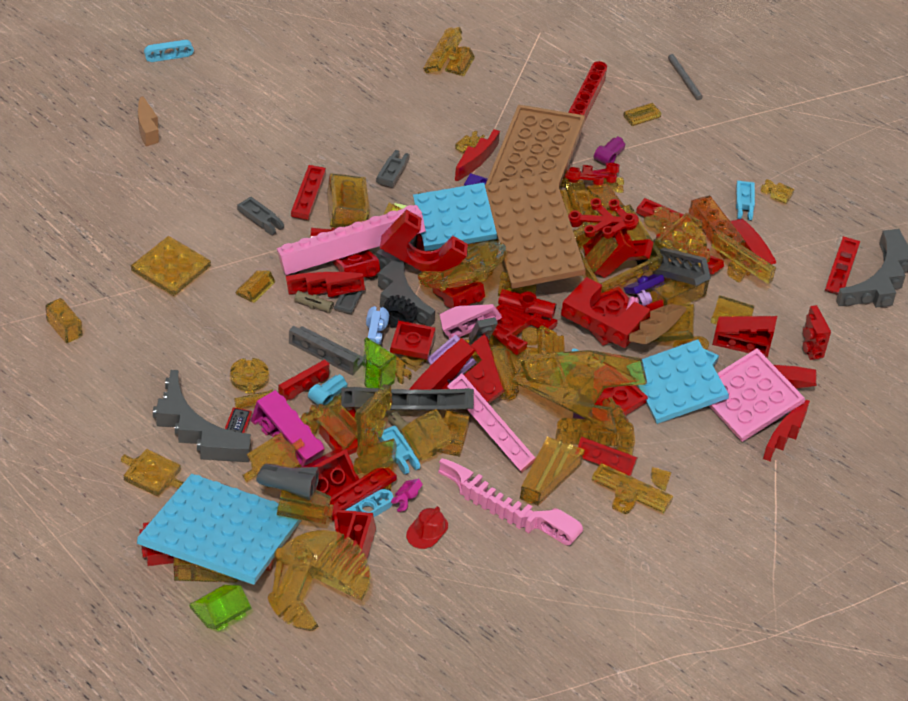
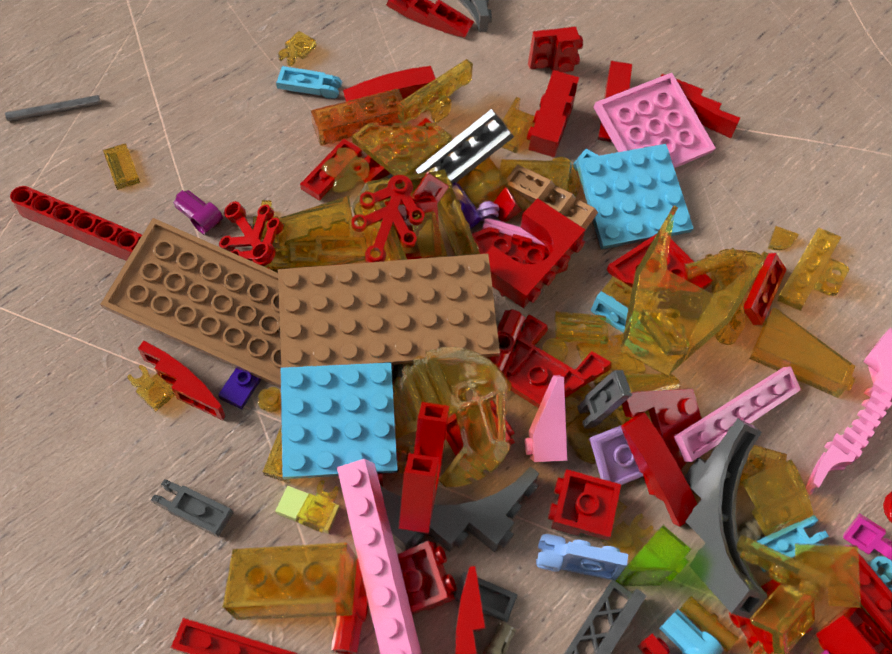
camera: 85 degrees left, 15 degrees up
(402, 305) = (533, 520): black tyre -> none

